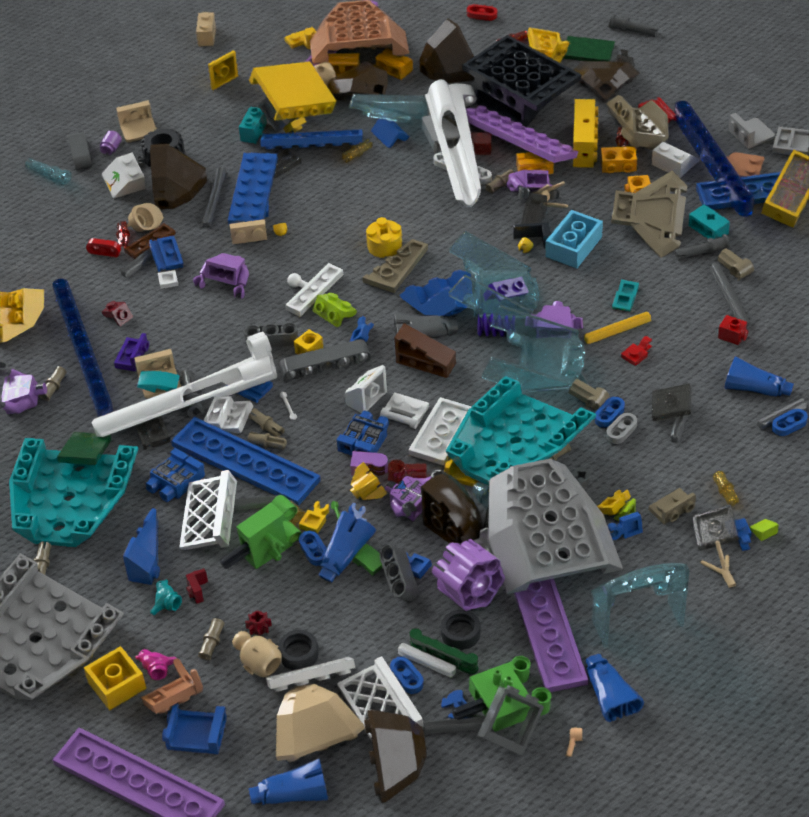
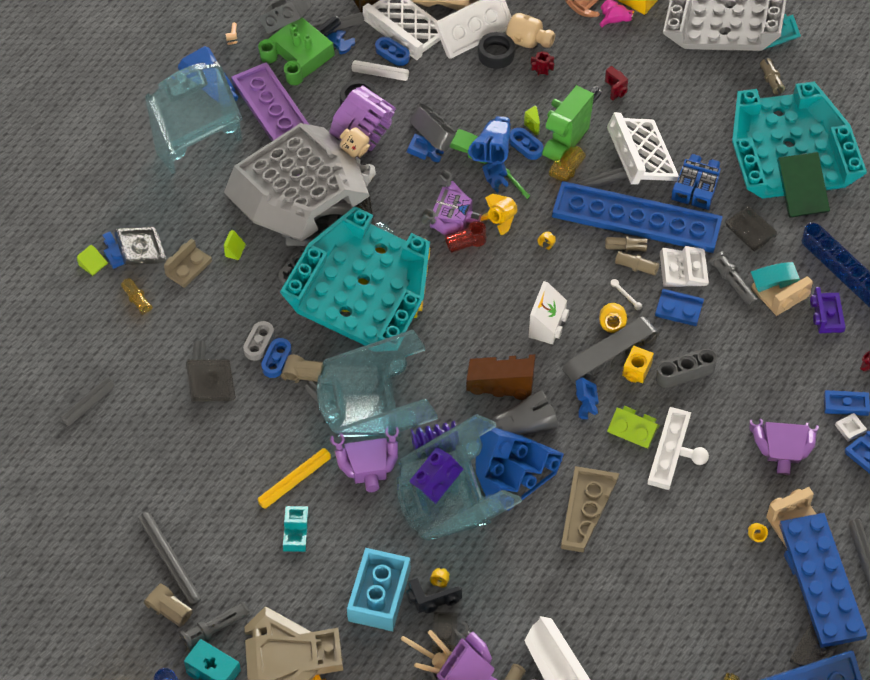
camera: 160 degrees right, 10 degrees up
(142, 552) = (678, 98): blue wedge -> none
(160, 292) = (846, 403): none -> blue plate
(165, 598) = (638, 68): teal animal -> none
(211, 639) = (578, 44): dark tan pin -> none
(238, 377) = (678, 299): white panel -> none
(296, 566) = (531, 120): none -> lime slope
(311, 379) = (613, 324): none -> yellow head
(314, 519) = (538, 171): yellow plate -> none
(335, 459) = (547, 235): none -> yellow hinge
(363, 434) = (526, 274): blue hips -> none
(375, 462) = (509, 239): medium lavender leg -> none
(384, 238) = (629, 536): yellow brick -> none
(406, 406) = (496, 319): white plate -> none
(438, 431) = (448, 295): white plate -> none
(450, 510) = (402, 190): dark brown brick -> none
(463, 662) = (366, 72): dark green plate -> none
(486, 535) = (354, 142): none -> tan head
(613, 504) = (248, 249): yellow plate -> none
(628, 526) = (223, 230): blue plate -> none
(635, 354) = (264, 445): red plate -> none
(725, 567) = (125, 208): tan plant -> none
(733, 330) = (156, 496): red brick -> none
(750, 378) = (127, 434): blue piece -> none
(788, 422) = (76, 389): blue plate -> none

